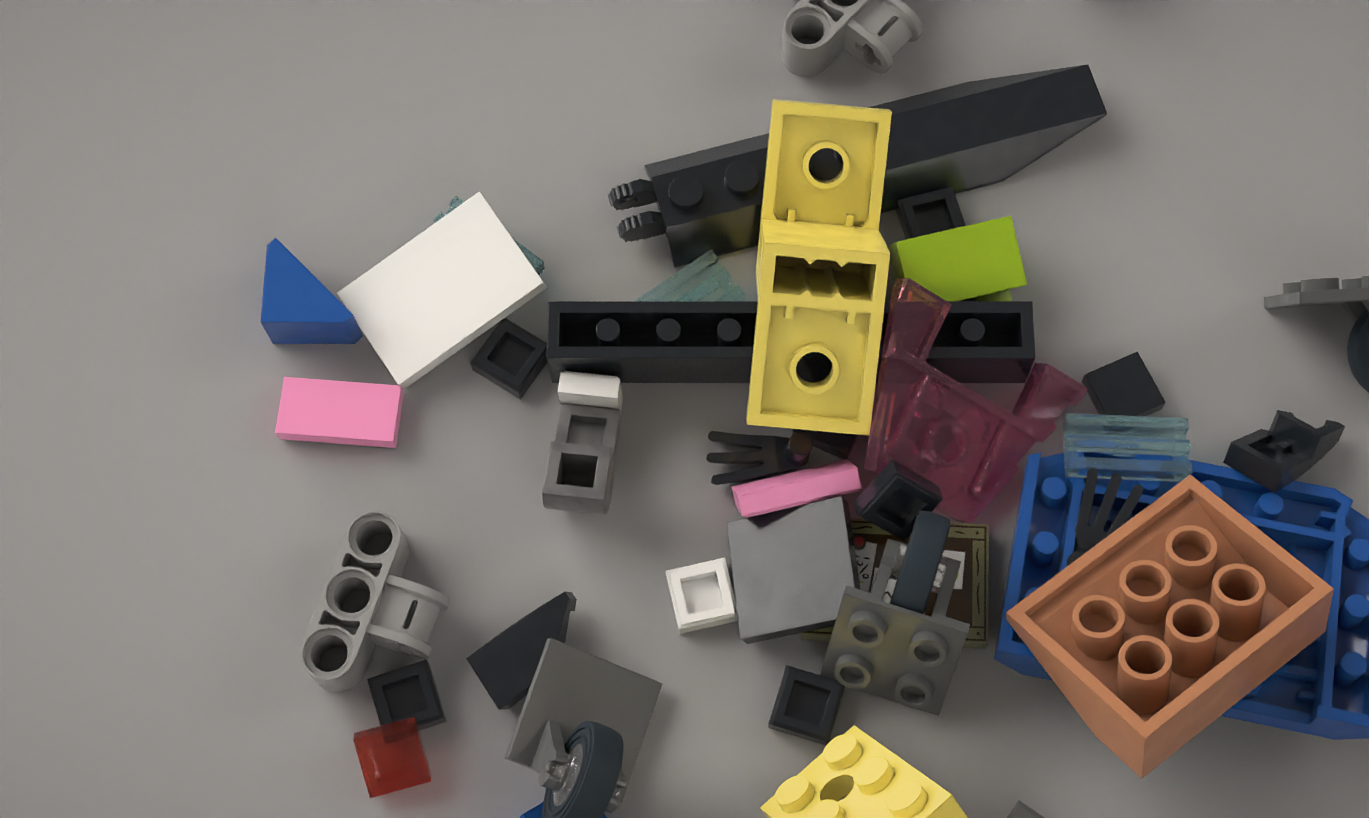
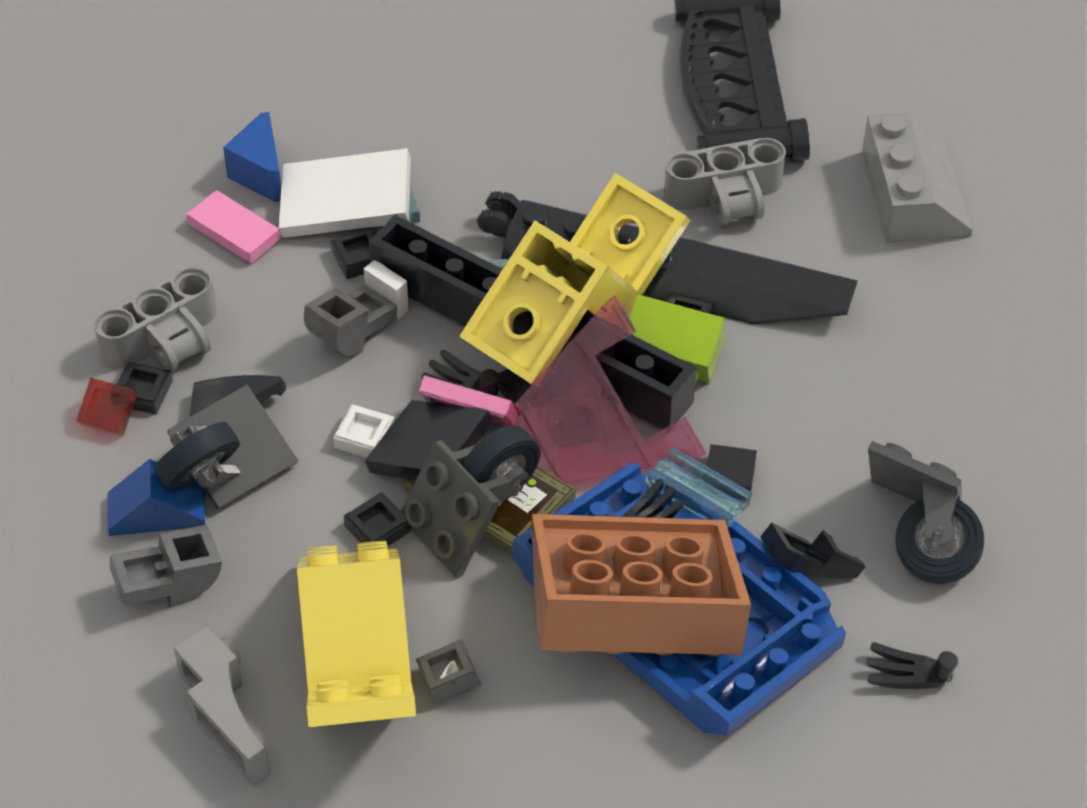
camera: 30 degrees right, 20 degrees down
(896, 499) = (528, 418): black tile -> none

